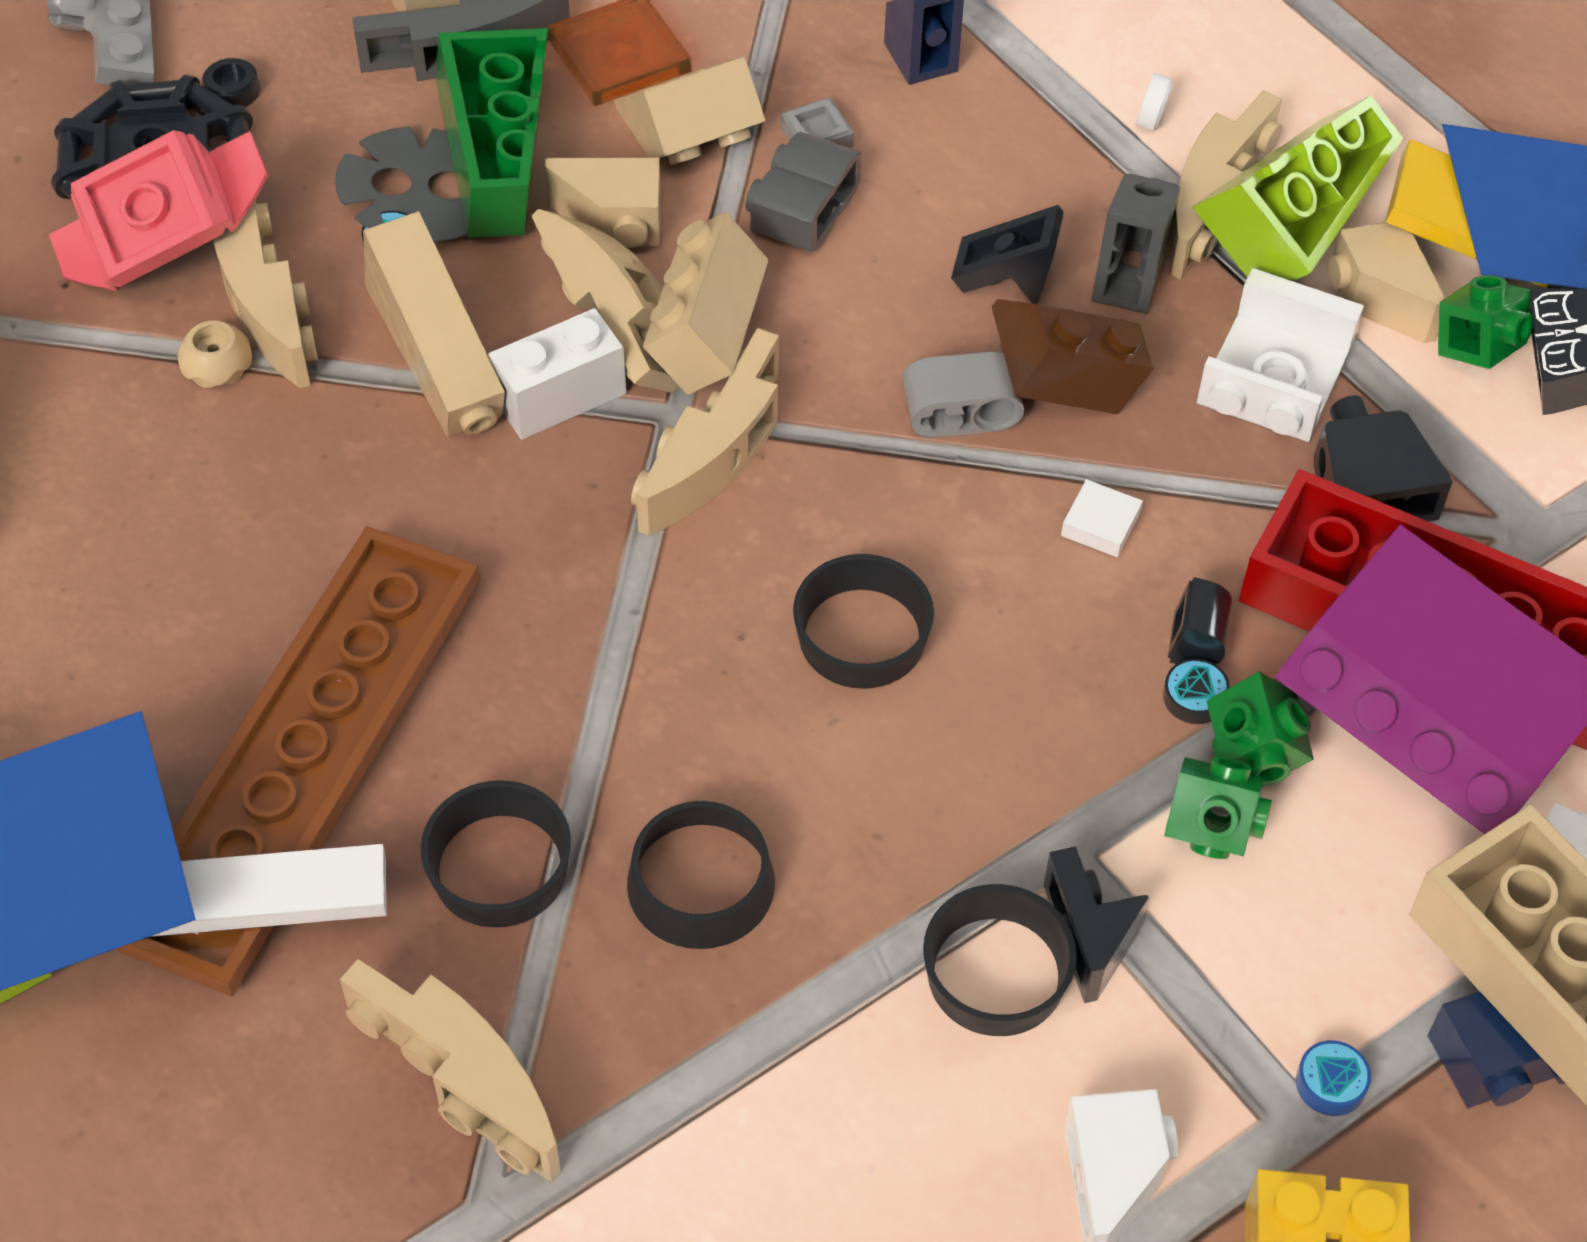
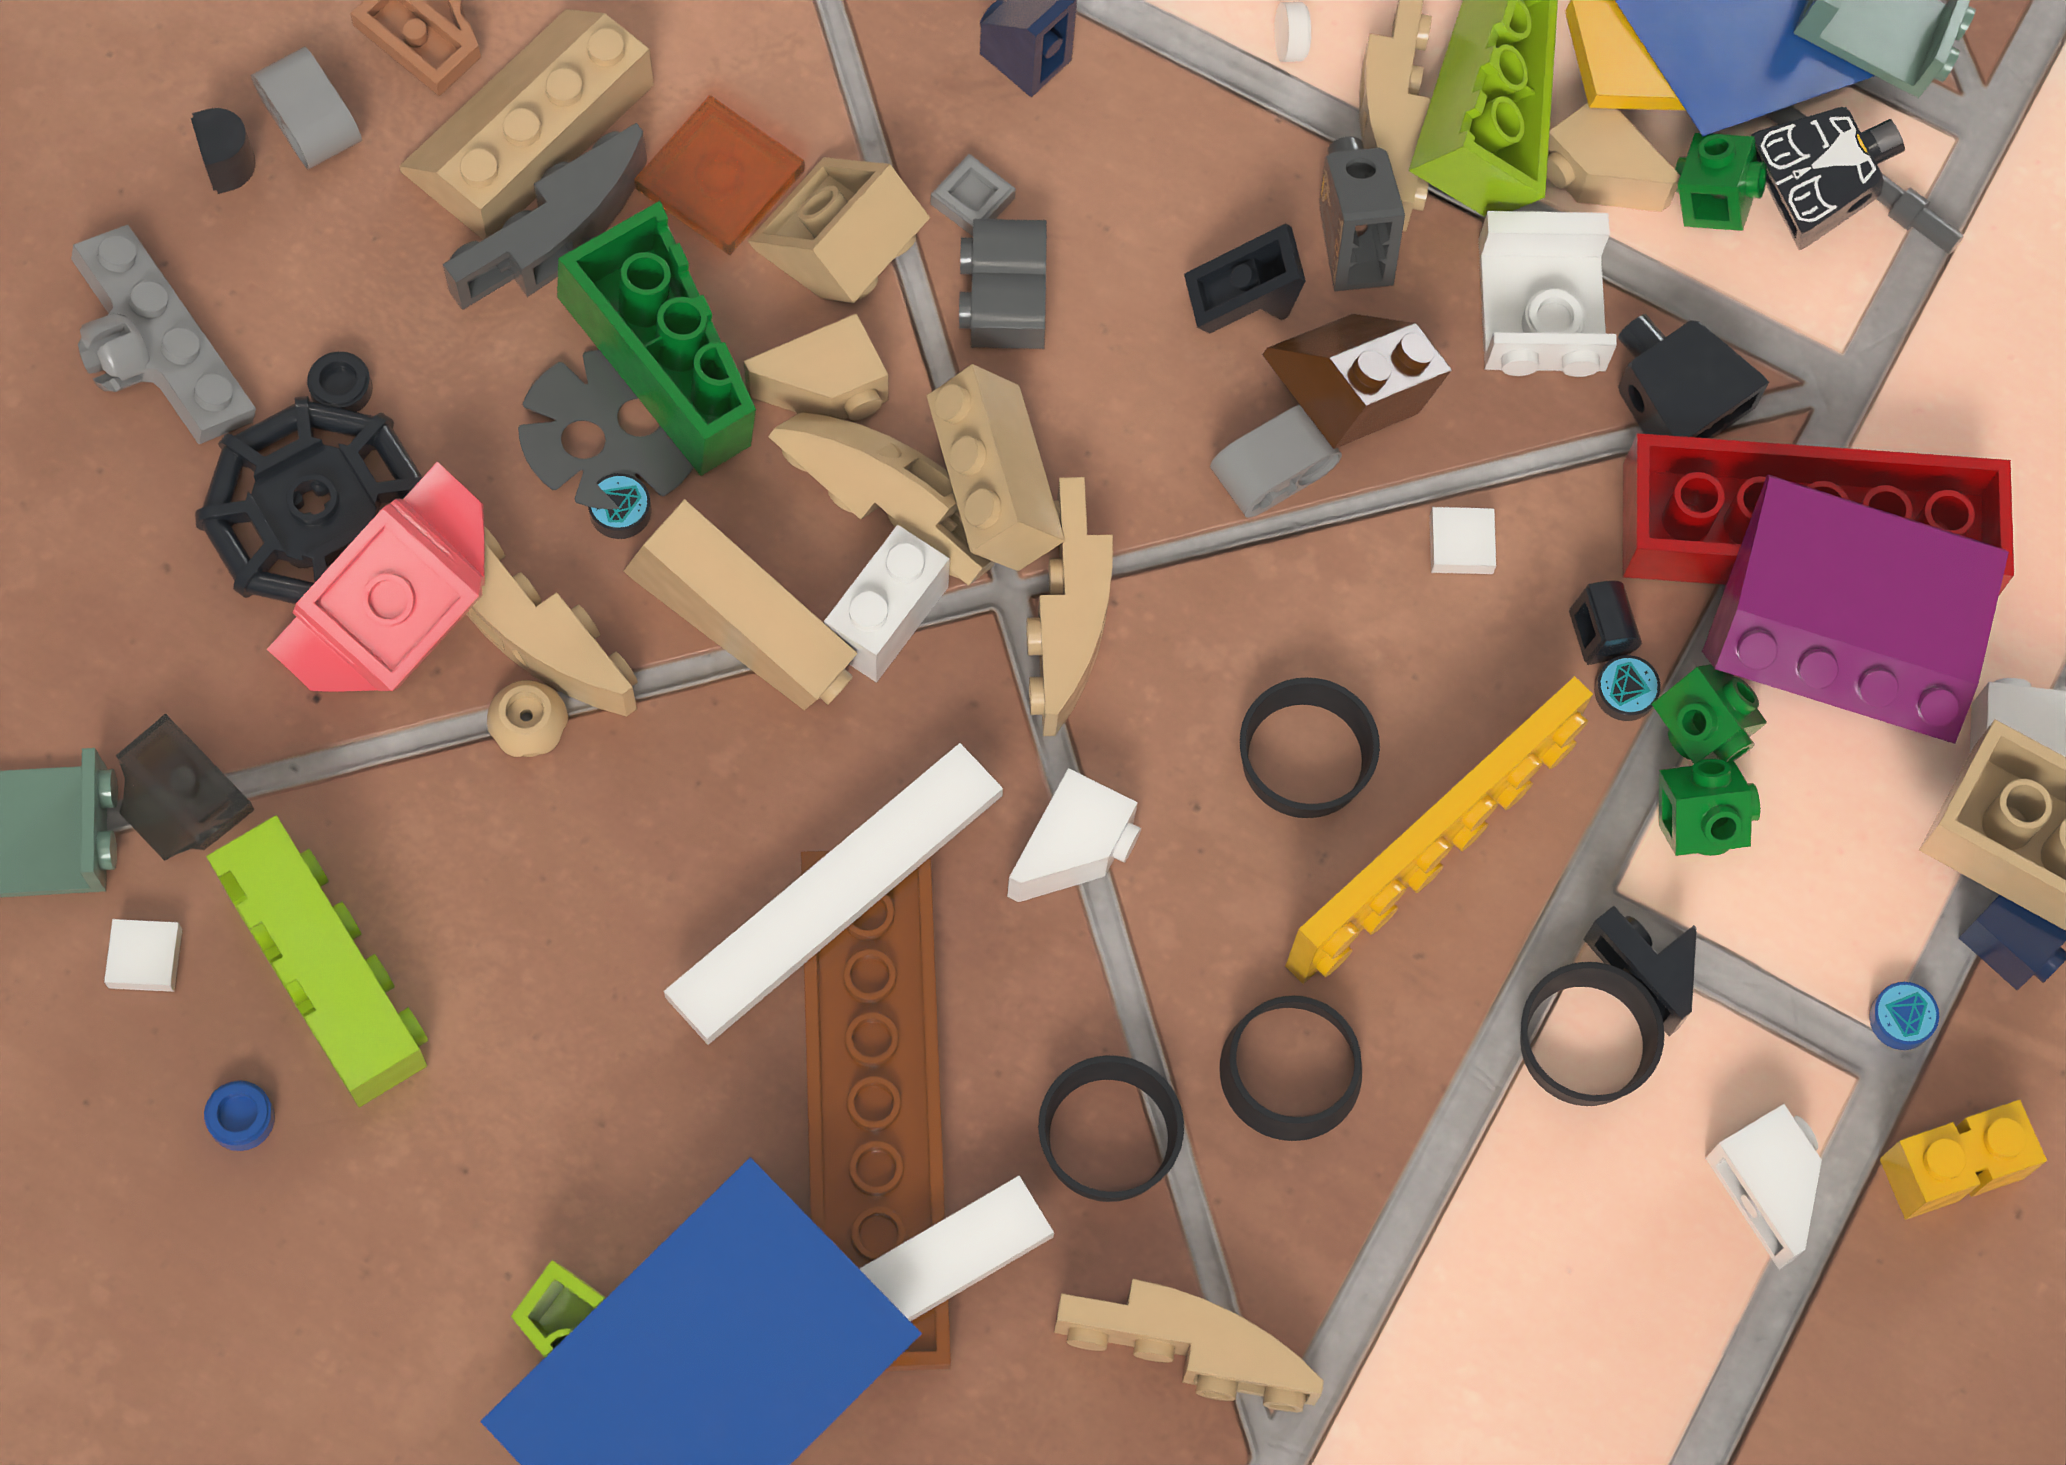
camera: 30 degrees left, 15 degrees up
(368, 562) = (833, 893): none -> white tile
(606, 609) = (1075, 838): none -> white slope
(937, 719) = (1454, 820): none -> yellow plate

